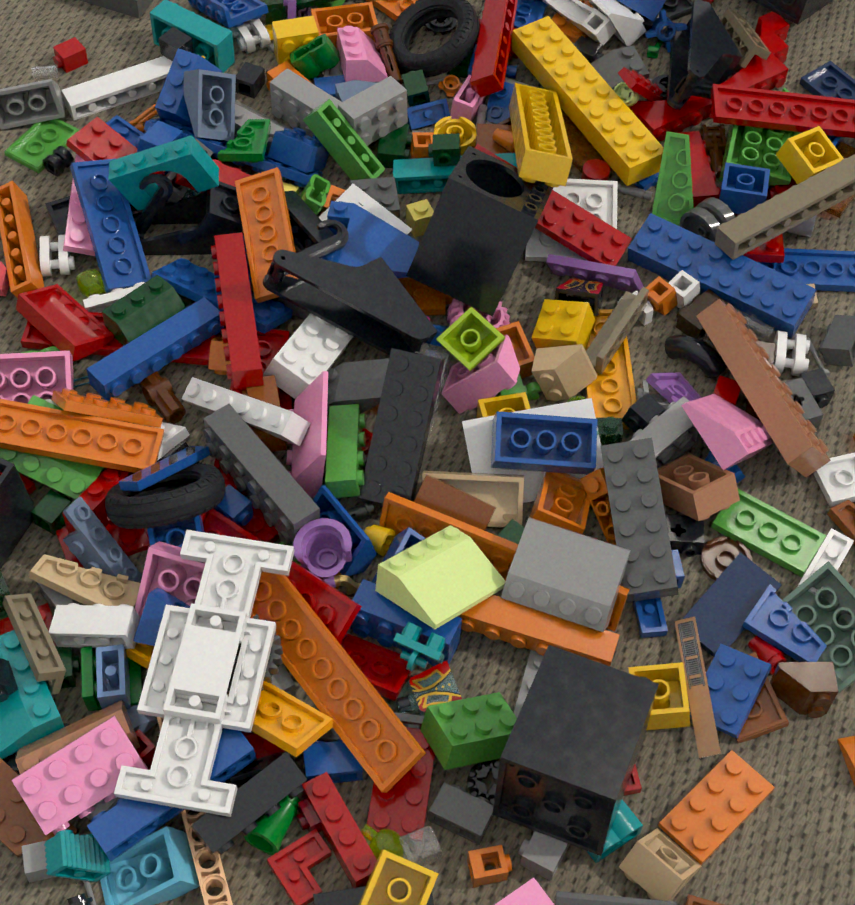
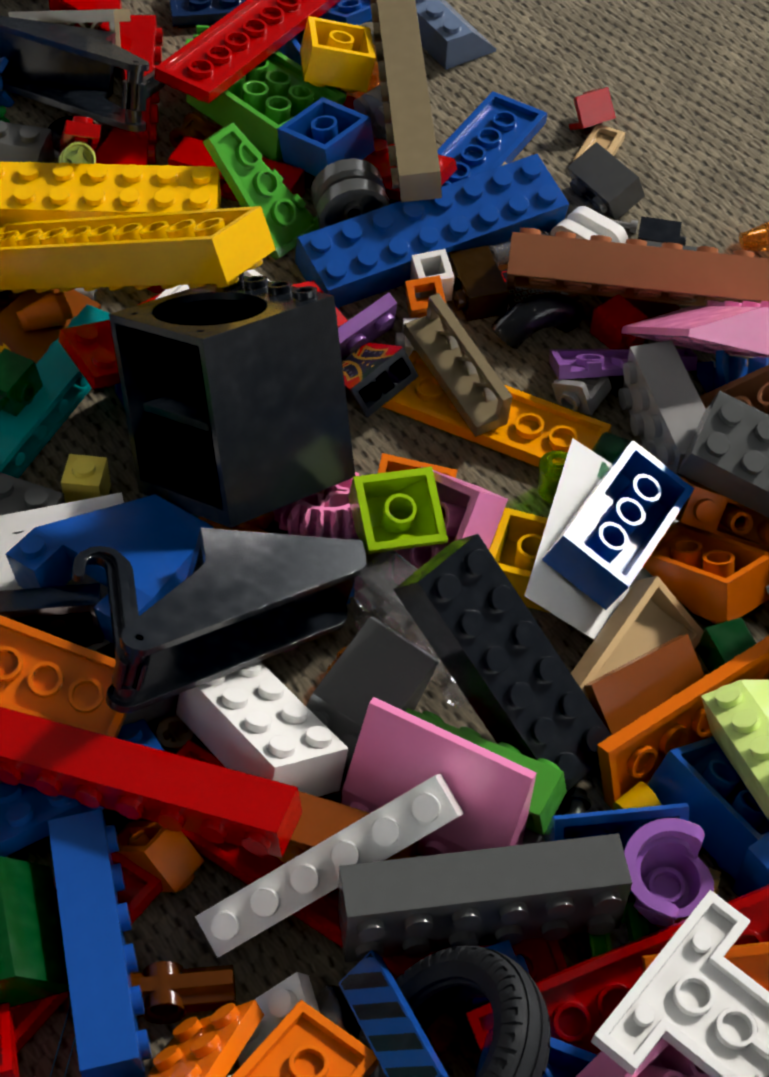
camera: 60 degrees left, 5 degrees down
(562, 371) = (490, 452): tan slope -> none
(563, 324) = (412, 417): yellow brick -> none
(642, 412) = (612, 408): black brick -> none

